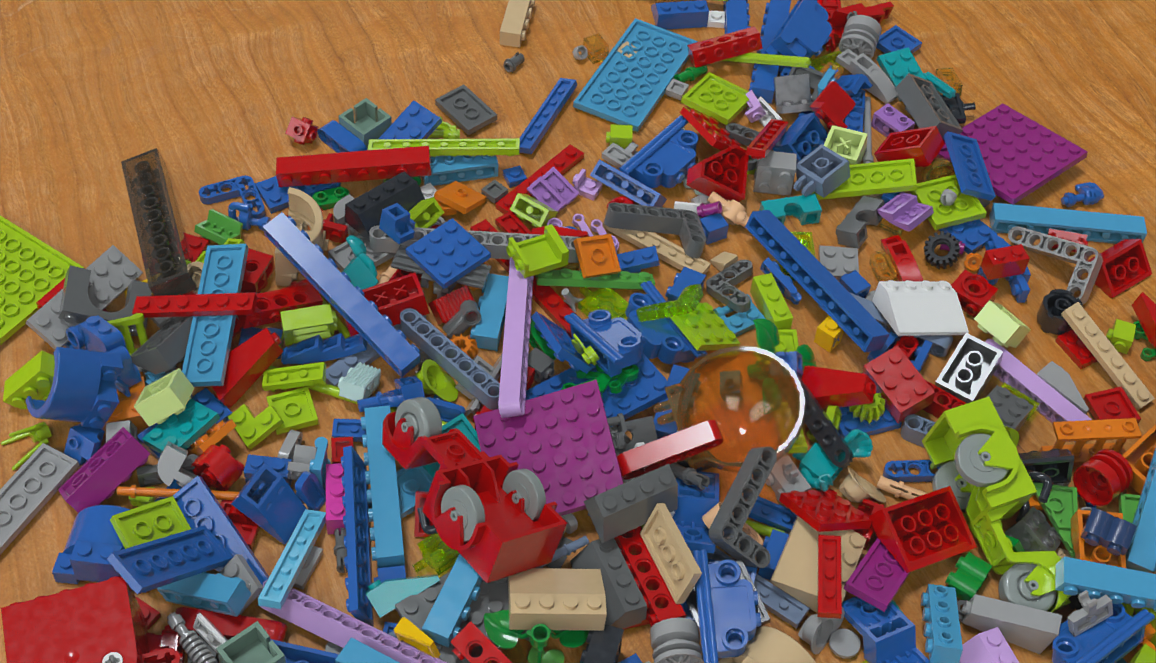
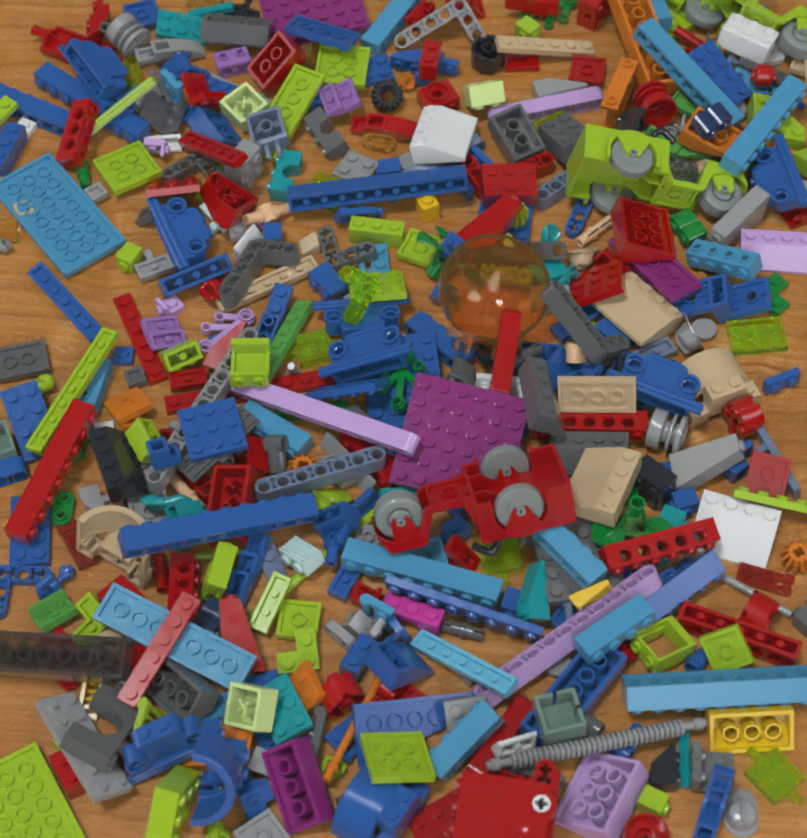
camera: 60 degrees left, 5 degrees up
(169, 559) = (444, 742): blue plate -> none
(170, 465) = (325, 724): light grey brick -> none
(587, 354) = (378, 371): lime plate -> none
(597, 256) = (272, 325): orange plate -> none
(709, 209) = (259, 227): magenta pin -> none
(829, 577) = (661, 304): red plate -> none
(948, 197) = (344, 62): light grey hinge -> none
(1092, 613) = (764, 162): light grey plate -> none

